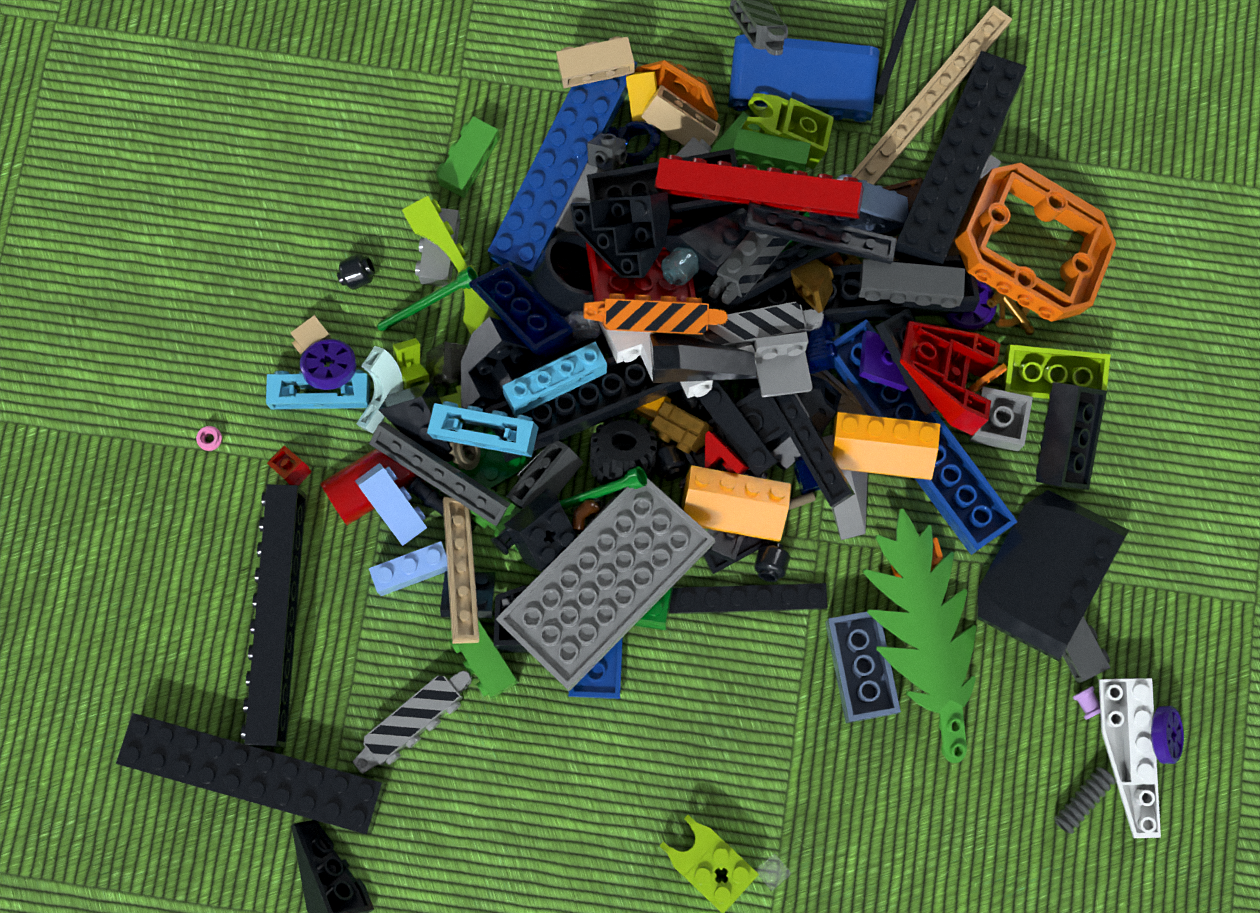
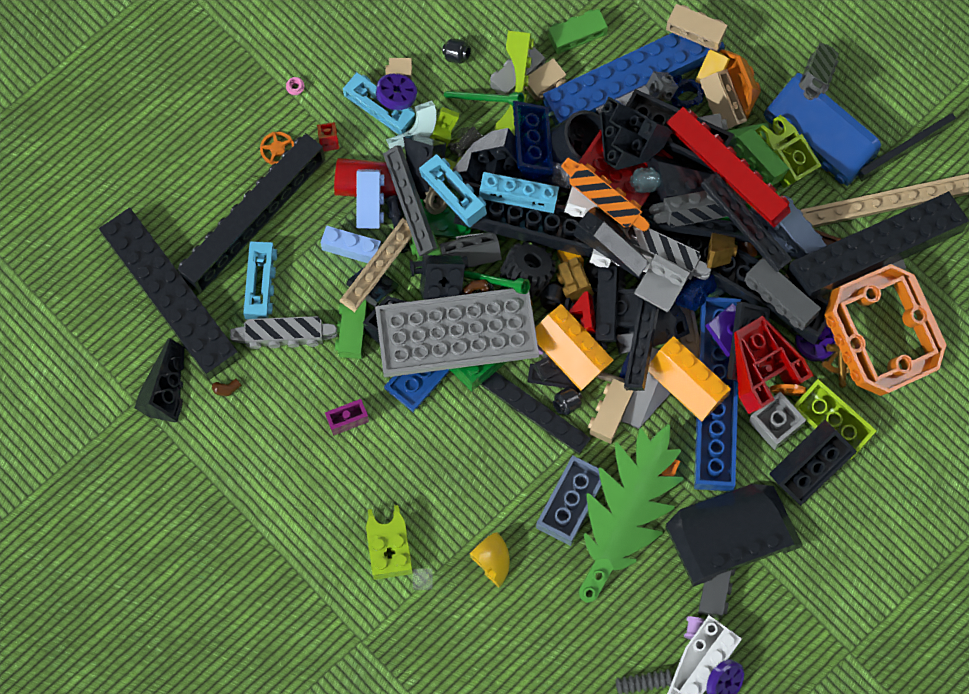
camera: 40 degrees right, 5 degrees down
(242, 521) = (277, 147): none -> orange wheel
(318, 649) = (262, 251): none -> medium azure brick
(399, 831) = (224, 389): none -> reddish brown arm
(476, 233) = (545, 79): none -> tan brick
(556, 760) = (347, 417): none -> magenta brick
(824, 538) = (610, 411): none -> tan brick
(830, 791) = (493, 558): none -> yellow brick

